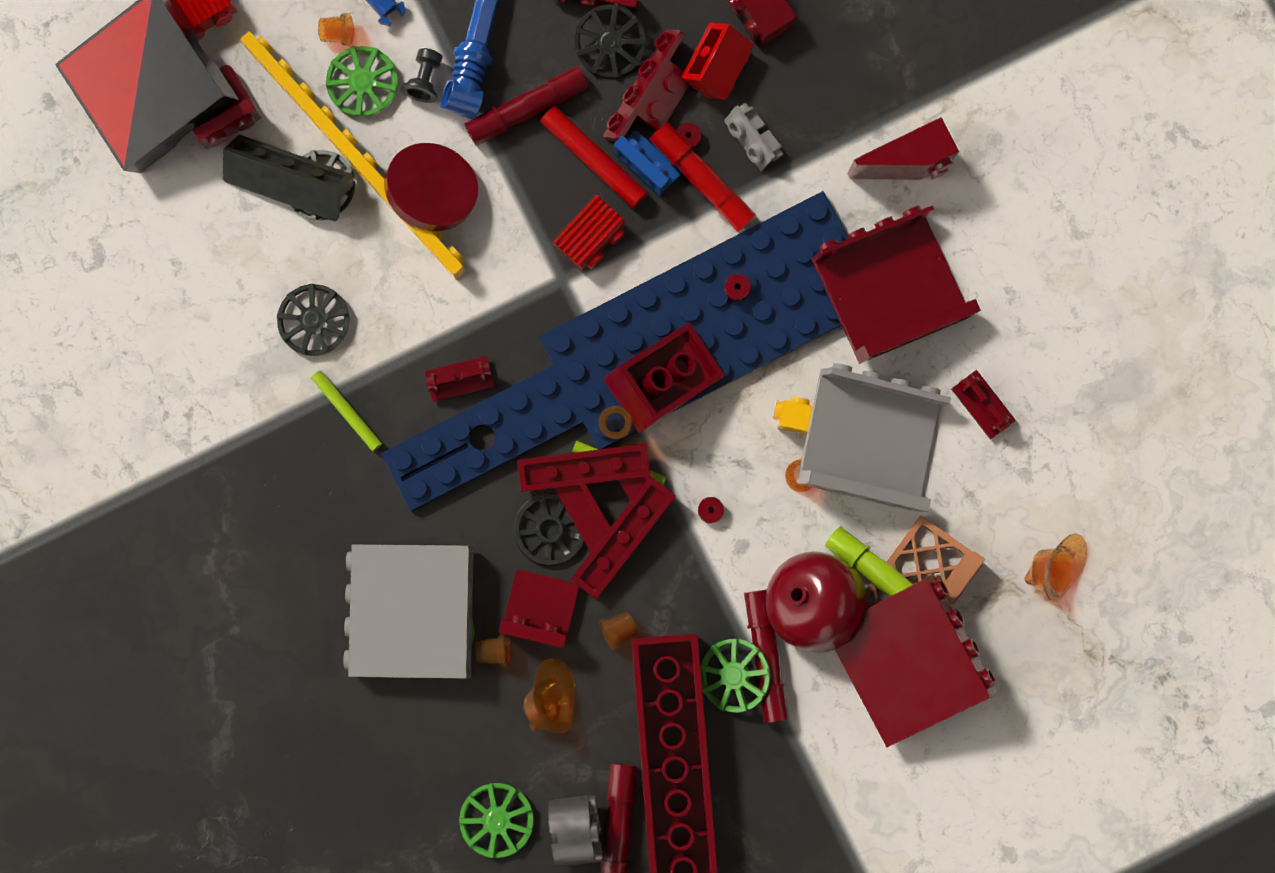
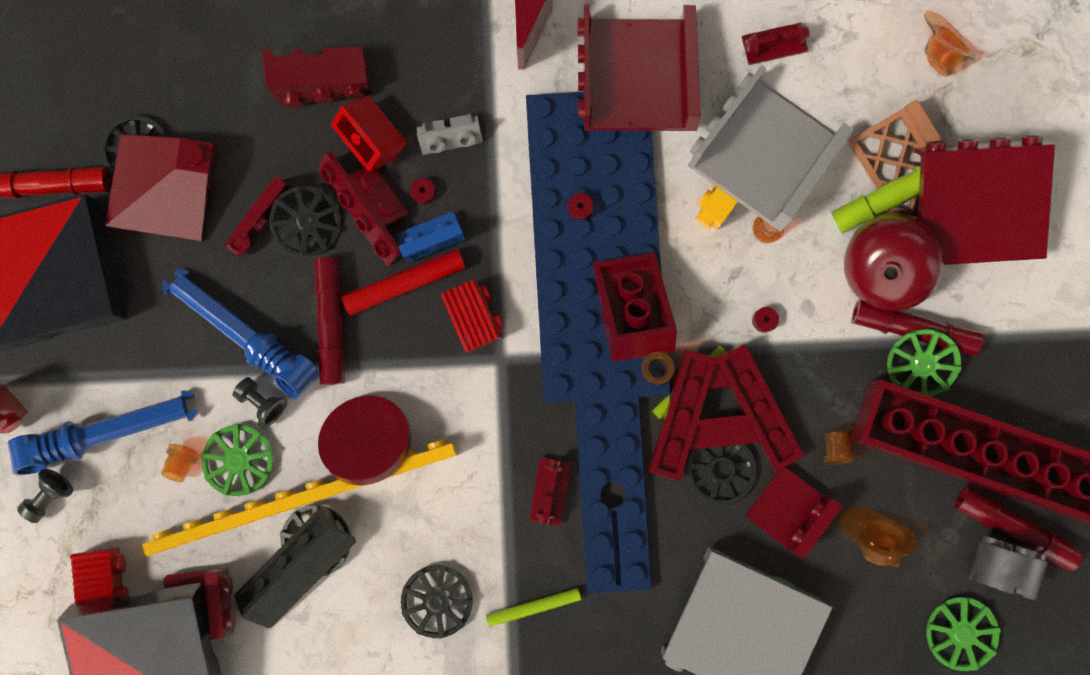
camera: 60 degrees left, 0 degrees up
(494, 651) = (812, 570): clear orange piece -> none
(702, 176) = (466, 193): red piece -> none

